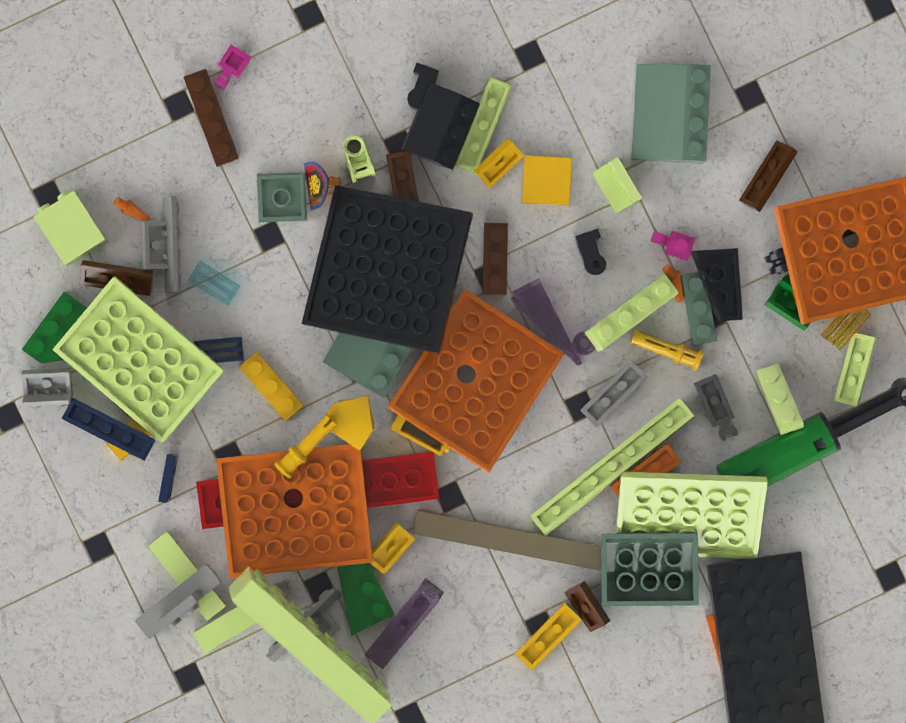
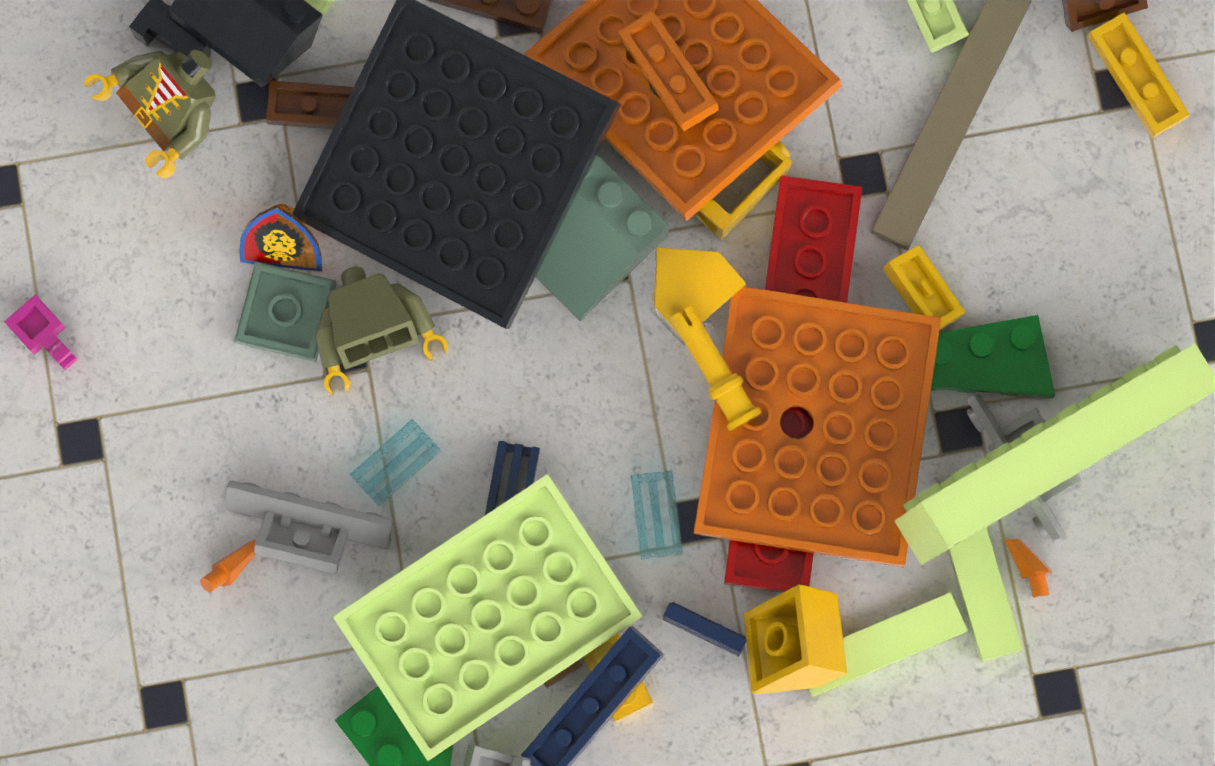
camera: 75 degrees left, 10 degrees down
(69, 227) = (227, 676): yellowish green panel -> none
(99, 274) = (325, 644): reddish brown plate -> none
(173, 529) = (795, 641): none -> yellow slope
(180, 600) = (924, 668): light grey bracket -> none
(211, 117) = (116, 391): reddish brown plate -> none
(243, 426) = (660, 550): none -> clear light blue tile
(252, 645) = (1030, 566): none -> orange bar
(271, 386) = (597, 415): yellow plate -> none
(285, 246) = (370, 321): none -> olive torso
(358, 160) = (261, 168): yellowish green piece -> none
(380, 97) = (167, 100): none -> olive torso
(404, 623) = (1056, 299): clear purple slope -> none
(469, 374) = (668, 70): none -> orange plate

